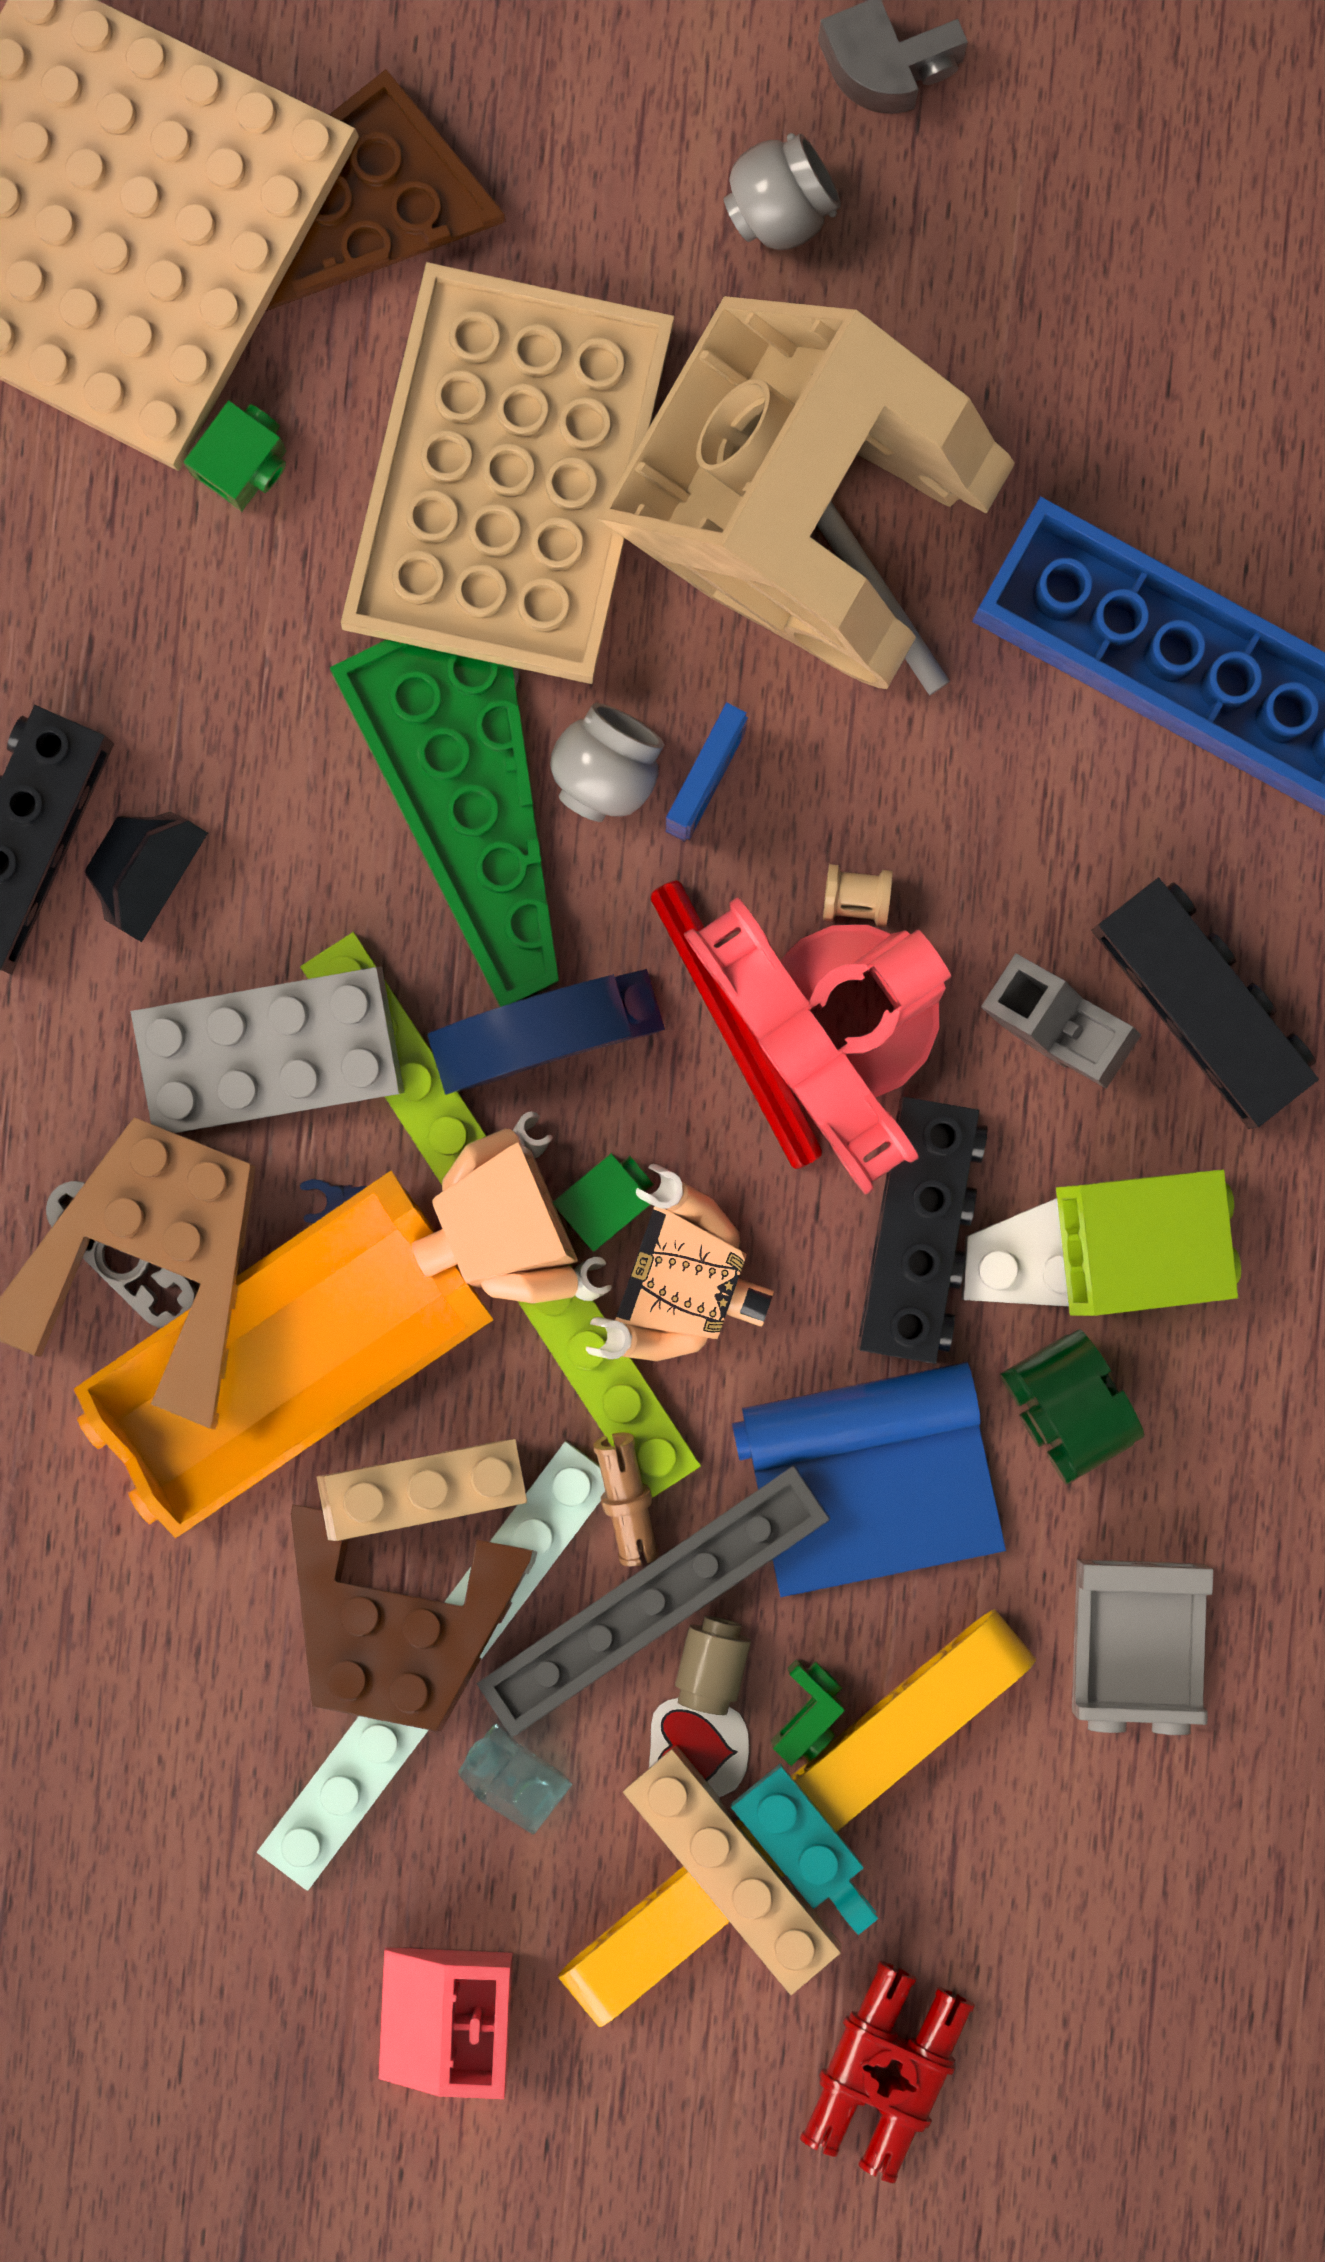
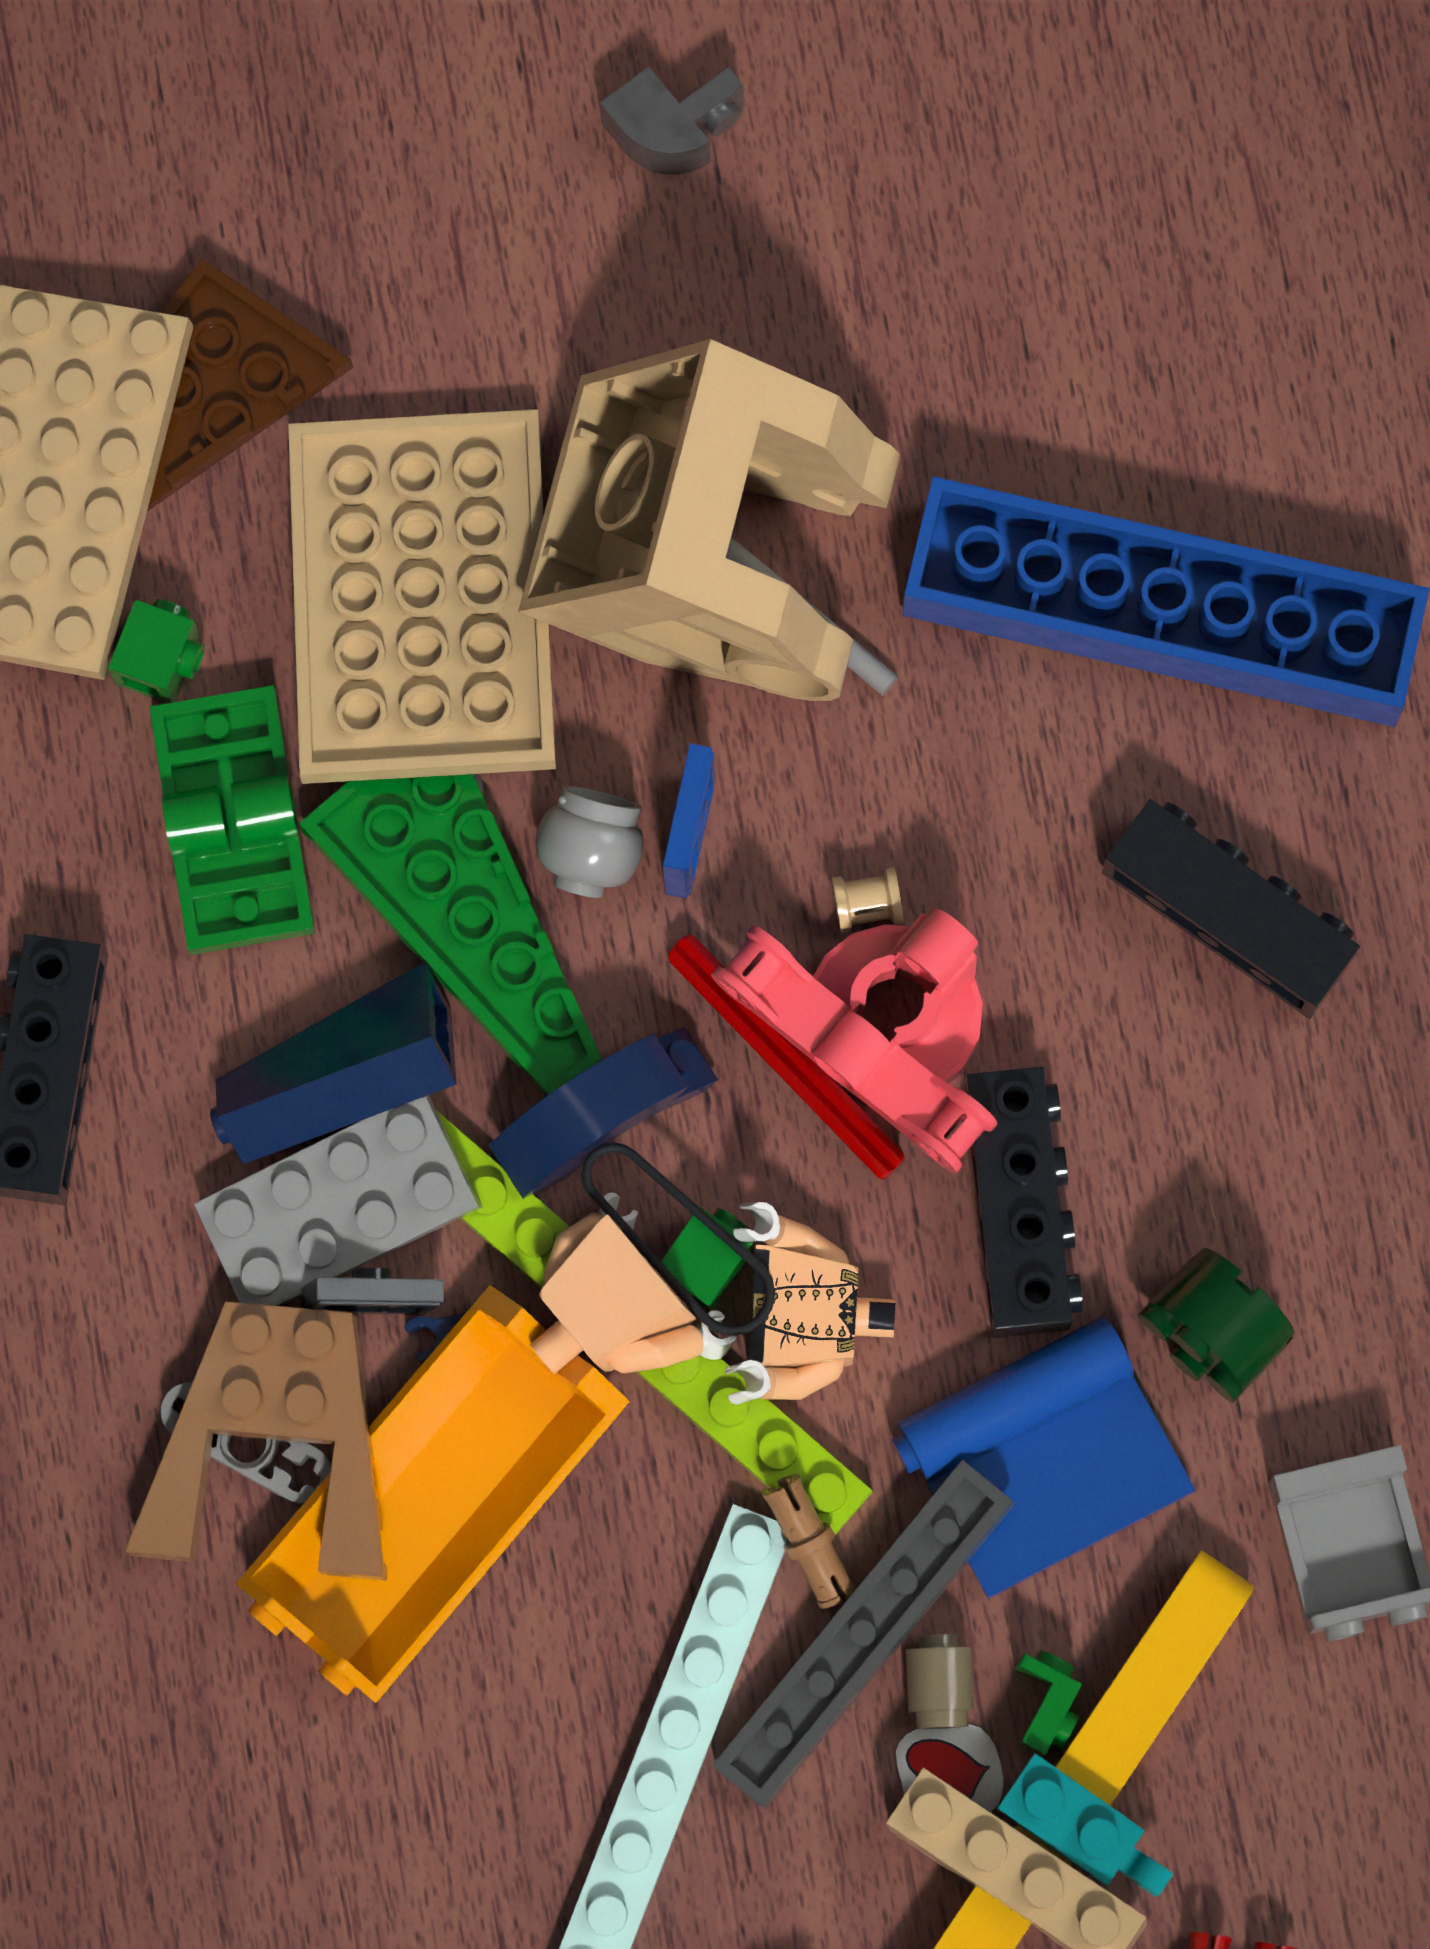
camera: 10 degrees left, 10 degrees down
(141, 867) = (167, 1064): black slope -> none
(266, 643) = (231, 820): none -> green plate
(276, 1146) = (373, 1293): none -> plate
(306, 922) = (341, 1069): none -> dark blue slope
(389, 1650) = (621, 1753): reddish brown wing -> none
(421, 1490) = (603, 1582): tan arch -> none
(513, 1779) = (775, 1852): clear light blue bracket -> none
(610, 1164) = (700, 1215): none -> black piece
(781, 193) = (607, 269): light grey piece -> none
(1017, 1260) = (1140, 1197): white wing -> none
(1059, 1021) = (1094, 966): flat silver brick -> none
(1148, 1243) = (1243, 1146): lime brick -> none

